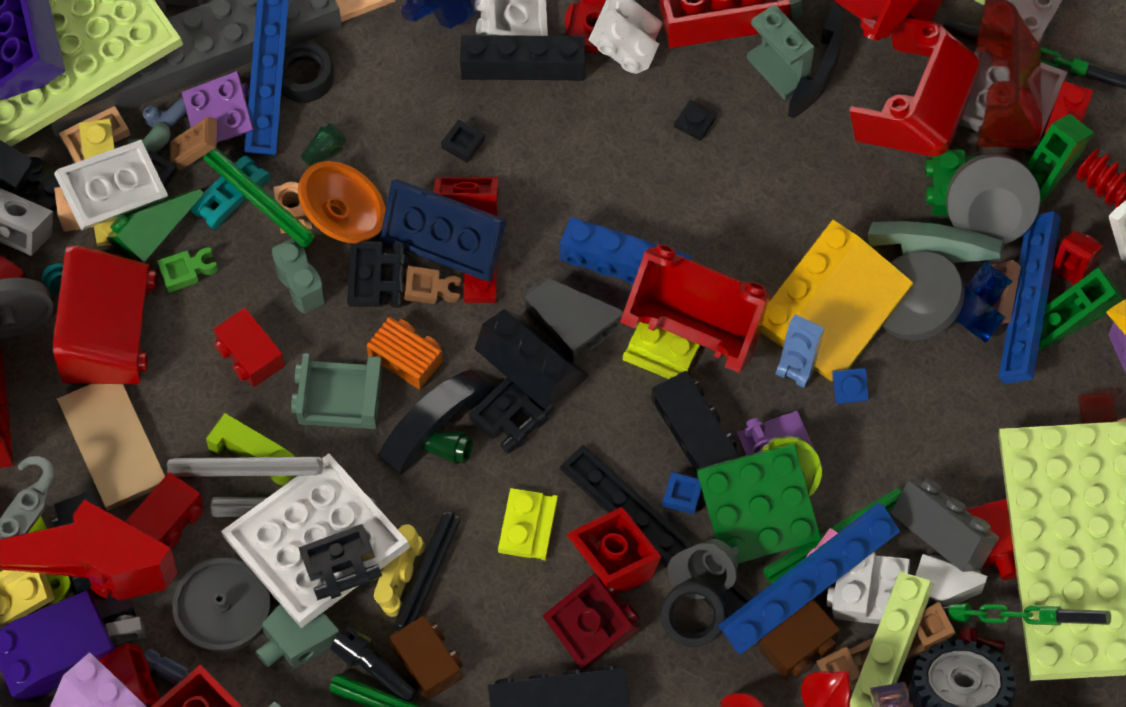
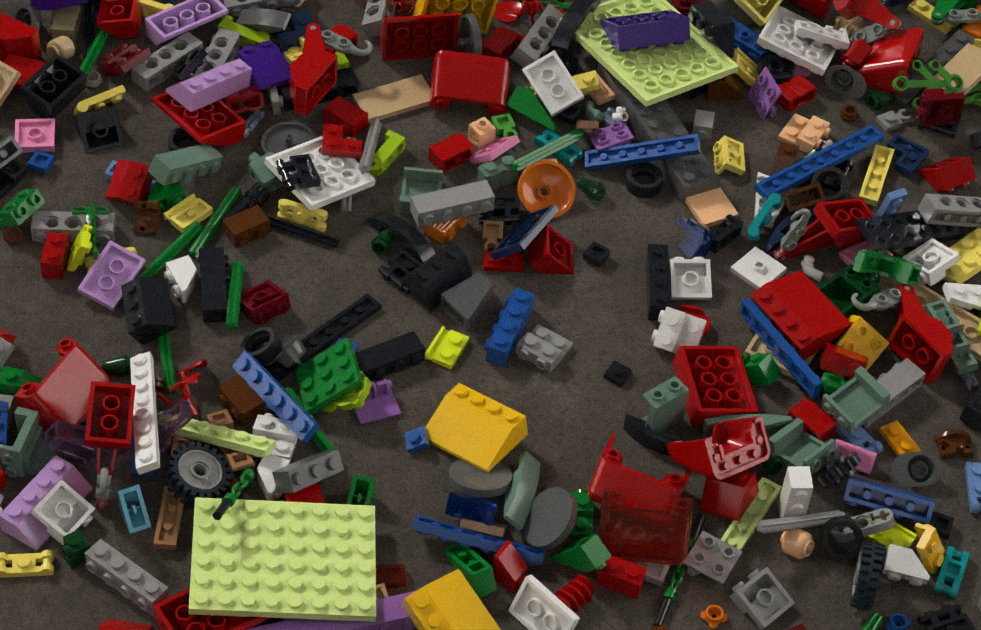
camera: 85 degrees right, 15 degrees down
(168, 99) = (620, 115): none -> white arm
(207, 300) = (481, 133): none -> light nougat brick
(250, 278) = (494, 149): none -> bright pink tile
(255, 517) = (335, 145): none -> red plate
(398, 328) = (452, 203): none -> light grey brick
(527, 524) = (330, 278): neon yellow plate -> none
(589, 660) = (234, 295): none -> green axle
(616, 550) = (302, 306): red slope -> none
(656, 213) = (543, 348): none -> light grey plate
(697, 305) = (473, 330): red windscreen -> none
(800, 350) = (432, 401): medium blue plate -> none
(971, 458) = (362, 490): none -> green slope
(1107, 9) = (716, 611): none -> orange plate

